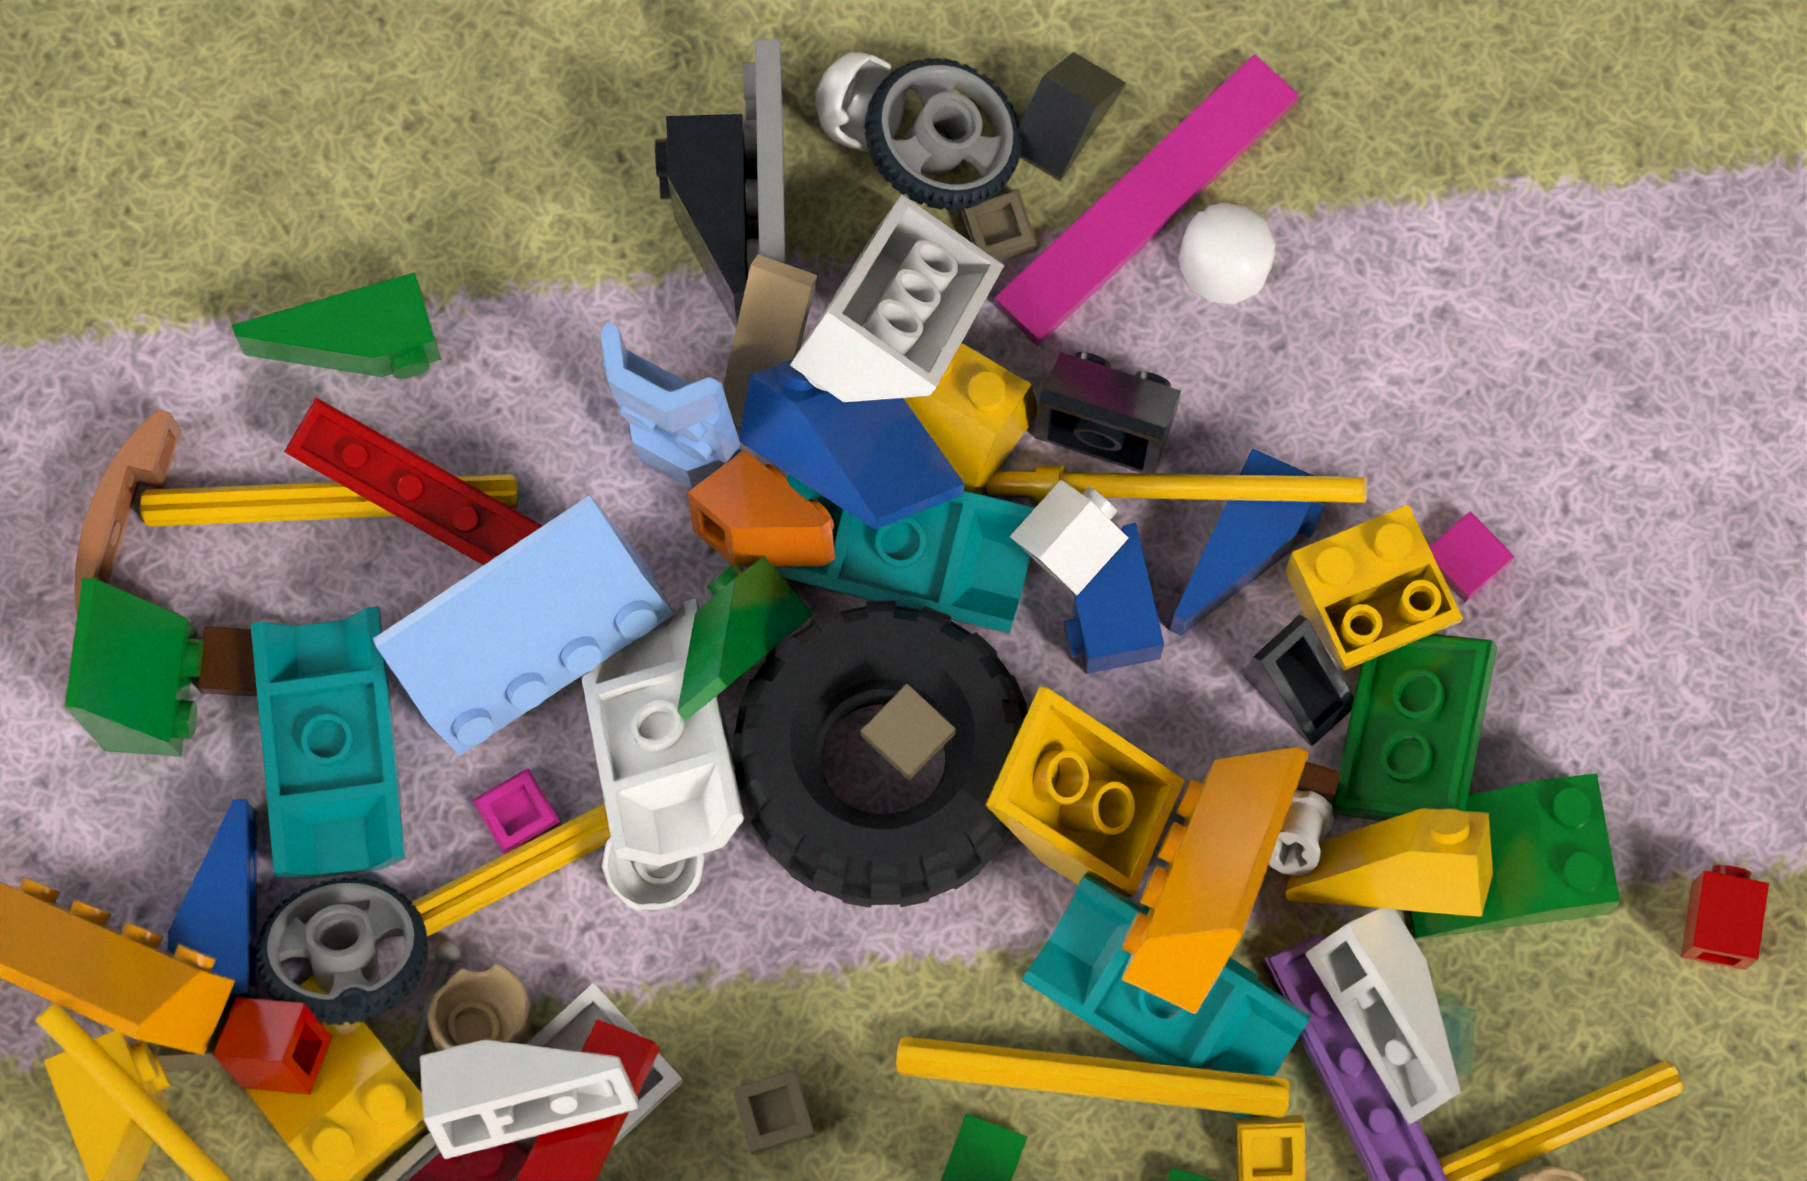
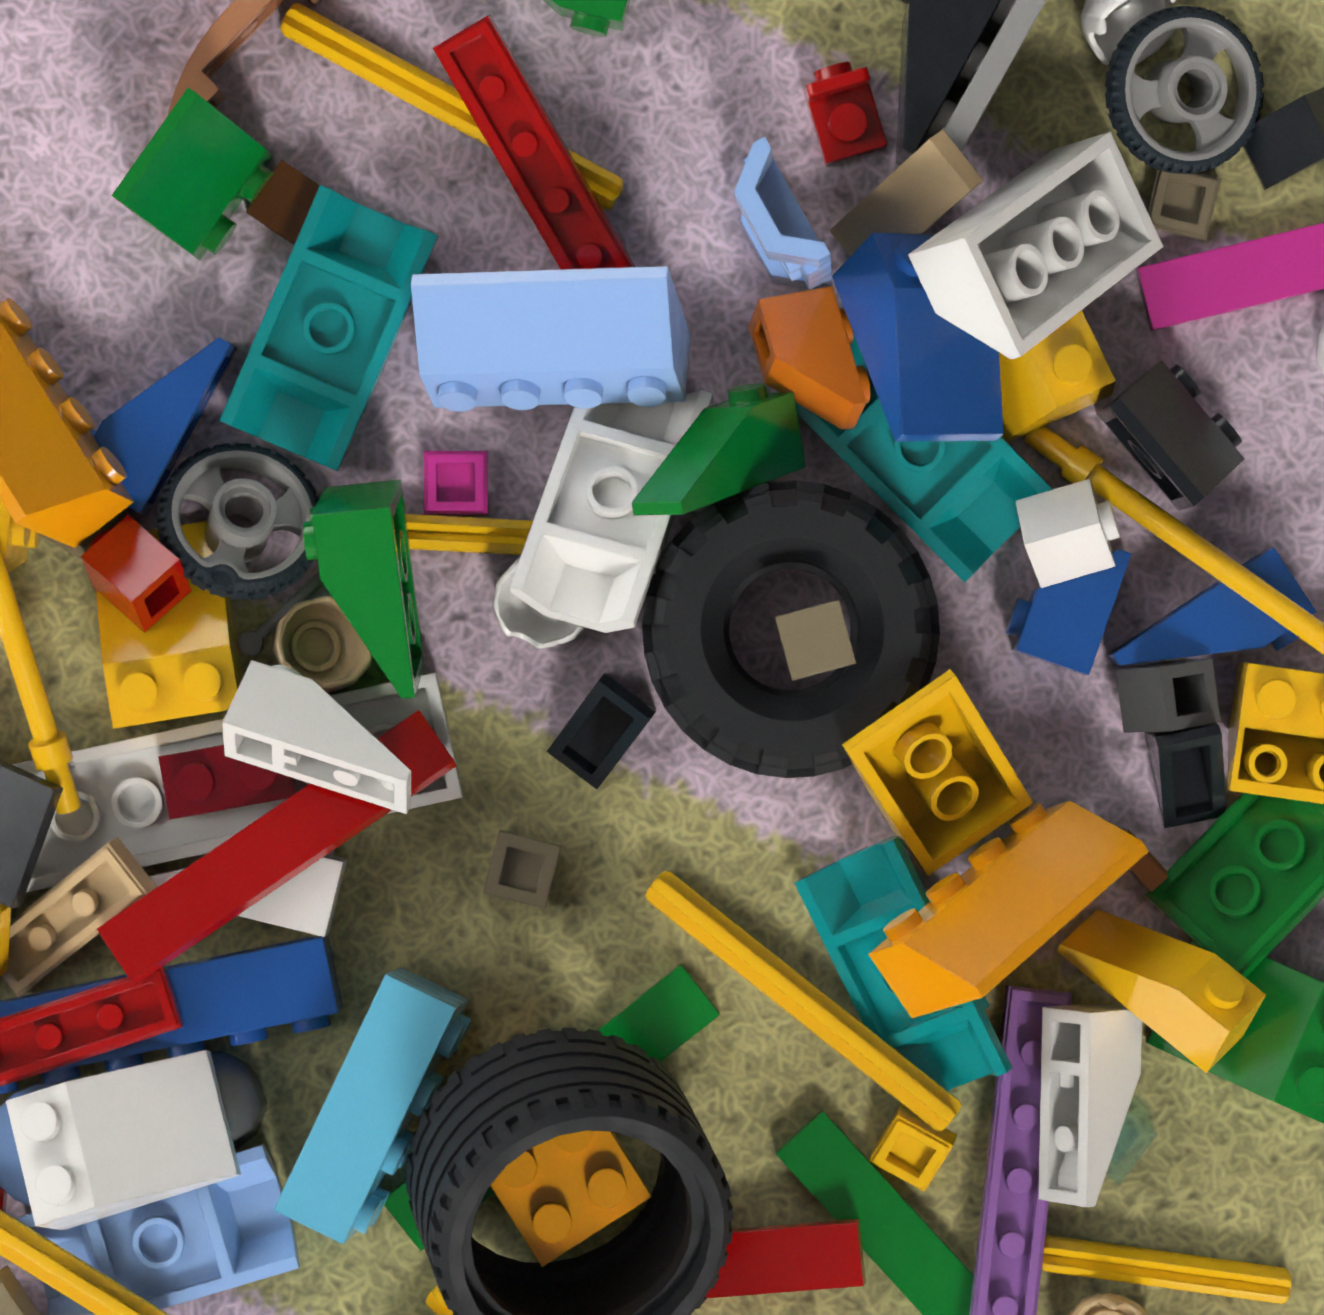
camera: 30 degrees right, 15 degrees up
(476, 911) = (368, 570): none -> green slope
(669, 314) = (844, 113): none -> red bracket
(771, 944) = (601, 730): none -> black slope
(1241, 622) = (1168, 695): none -> dark grey brick
(1298, 842) = (1119, 898): white bush -> none

